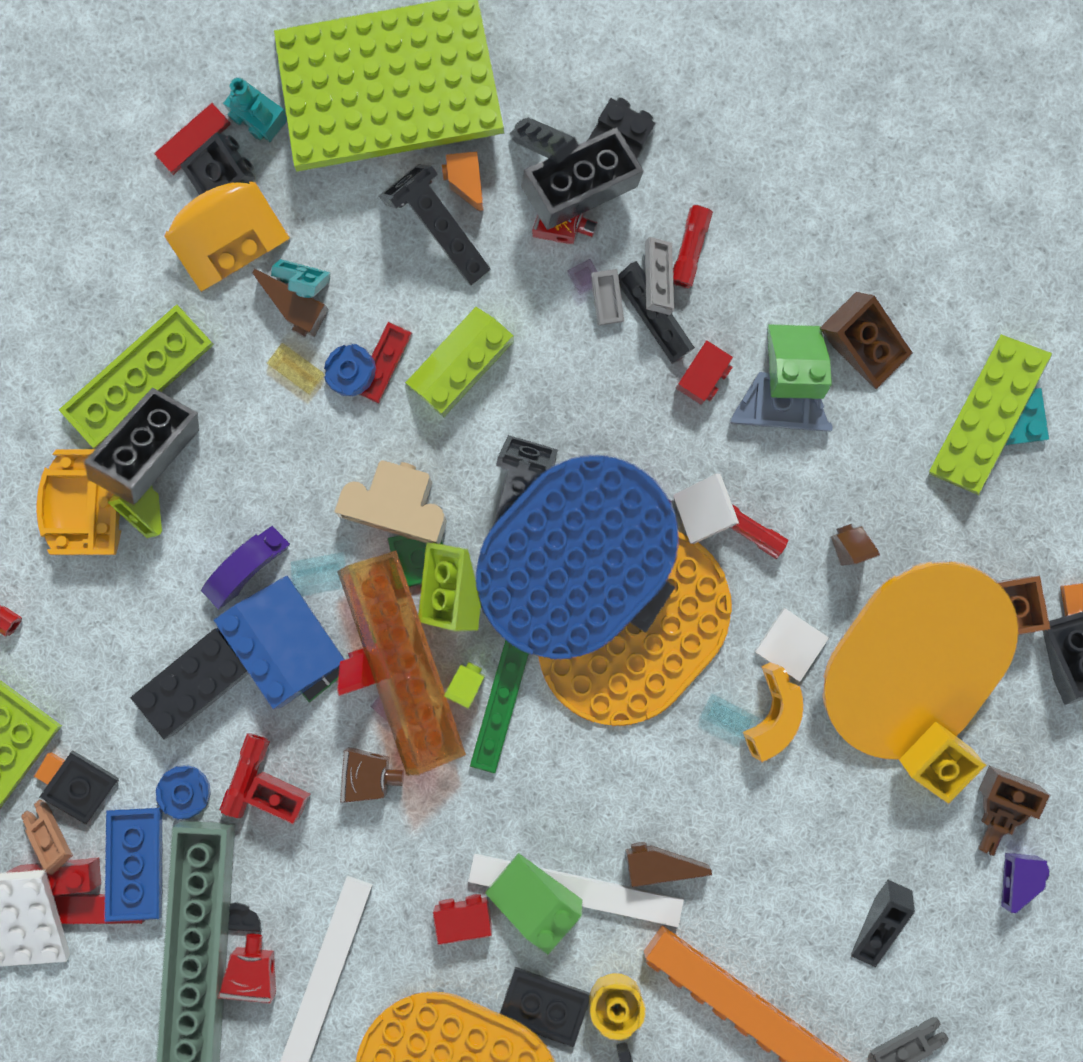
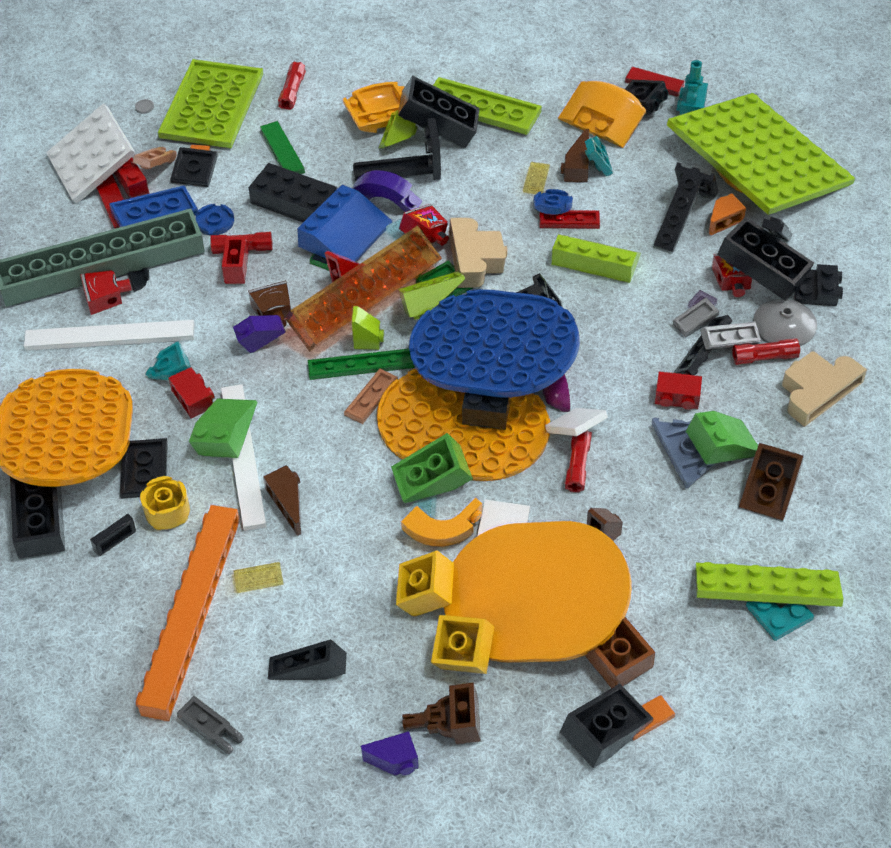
camera: 70 degrees right, 35 degrees down
(95, 661) = (281, 147): none -> green tile
(200, 526) = (409, 165): none -> black bracket
(325, 543) = (429, 221): none -> red torso
(406, 928) = (169, 362): none -> teal plate
(409, 811) = (258, 331): none -> dark purple slope
(553, 714) = (369, 397): none -> nougat tile
(652, 216) = (785, 320): none -> light grey dish
(703, 696) = (432, 470): none -> bright green slope
(747, 932) = (258, 577): none -> clear yellow tile
(765, 217) = (819, 385): none -> tan brick
(852, 769) = (425, 584): none -> yellow brick

